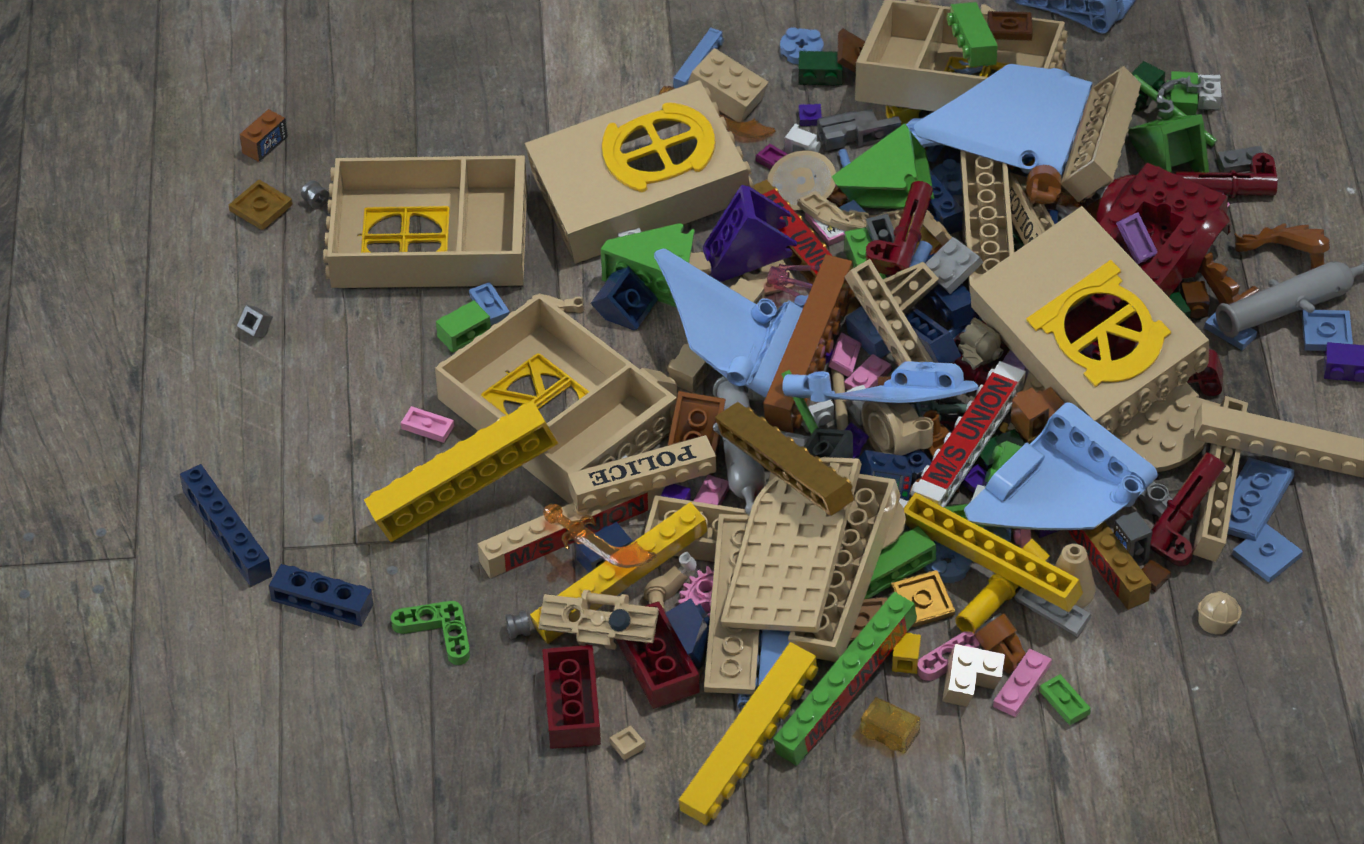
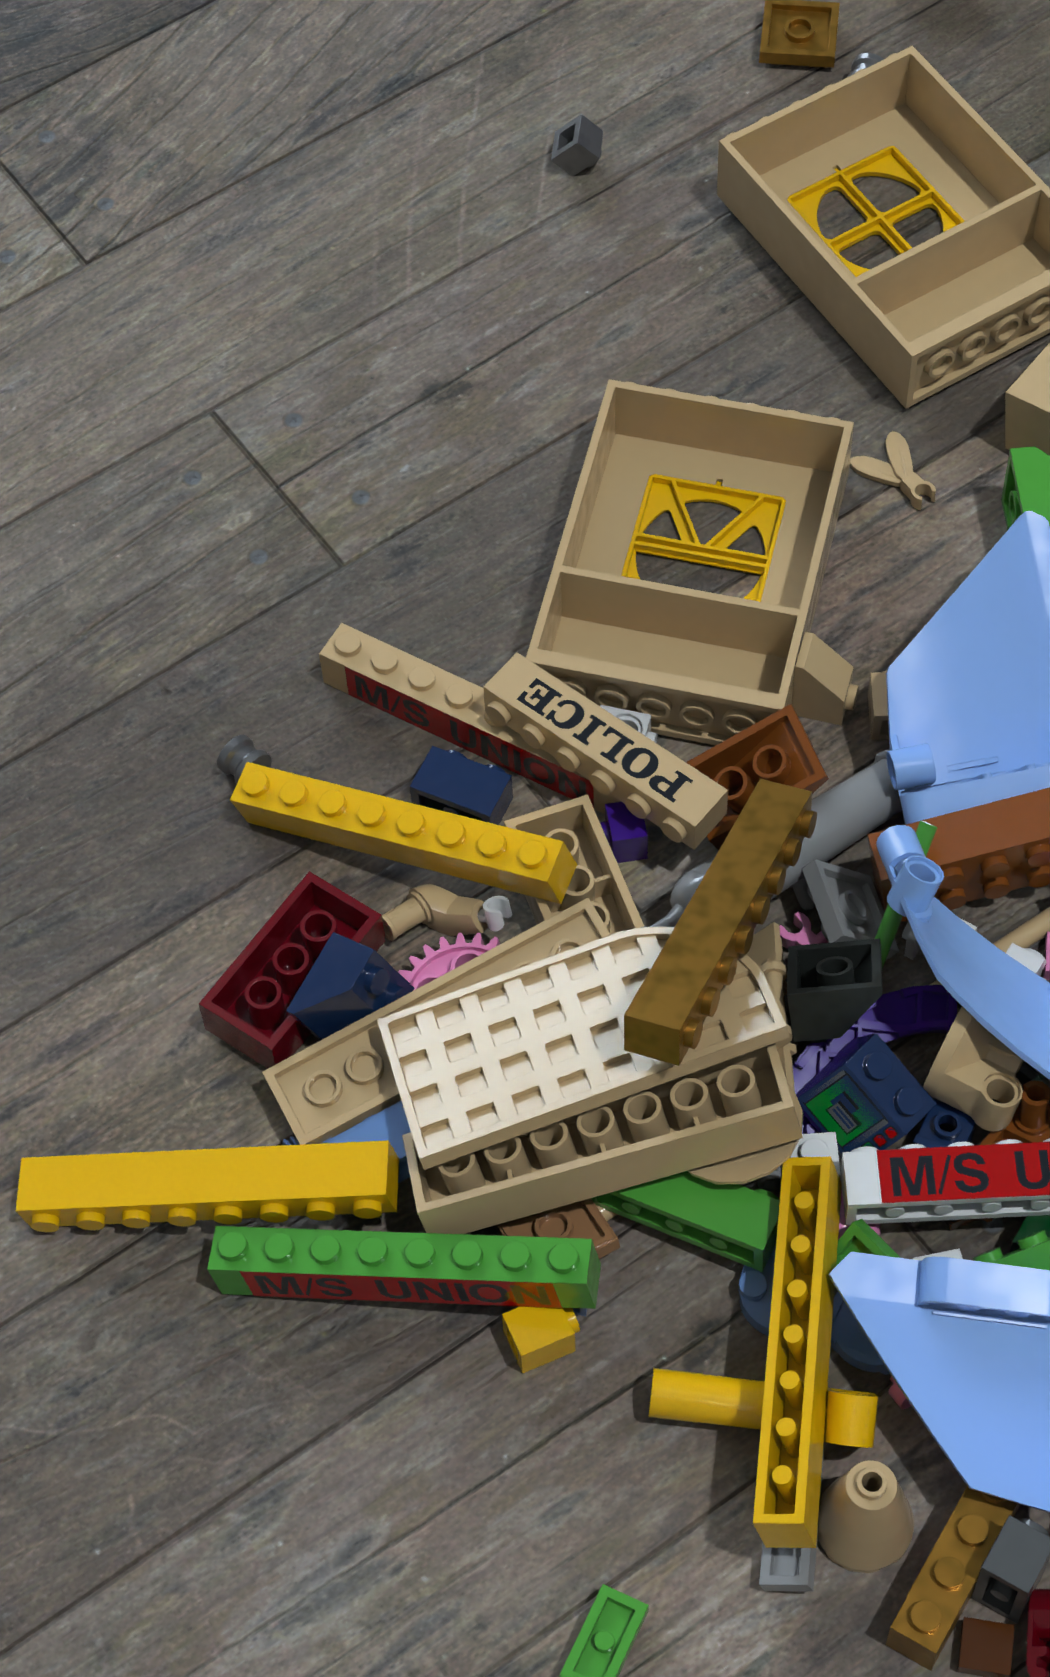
camera: 60 degrees right, 10 degrees up
(226, 525) = (190, 322): dark blue brick -> none
(321, 595) = (143, 498): dark blue brick -> none
(427, 424) = (545, 443): bright pink plate -> none
(440, 620) = (198, 667): bright green beam -> none
(460, 471) = (438, 521): yellow brick -> none
(462, 326) = (759, 376): bright green brick -> none
(490, 302) = (832, 385): medium blue plate -> none
(571, 697) = (141, 904): dark red brick -> none
(599, 627) = (265, 875): tan piece -> none
(623, 557) = (401, 815): clear orange sword -> none
(624, 299) = (962, 536): dark blue slope -> none
(627, 742) = (113, 1029): tan plate -> none
(712, 491) = (653, 877): bright pink plate -> none
(890, 725) = (370, 1389): clear yellow brick -> none
(928, 595) = (671, 1297): plate -> none
(940, 666) = (545, 1402): bright pink beam -> none
(969, 668) = (551, 1443): brick -> none
(975, 478) = (984, 1236): dark purple plate -> none
(994, 633) = (661, 1451): dark orange piece -> none
(1022, 682) = (603, 1552): bright pink plate -> none

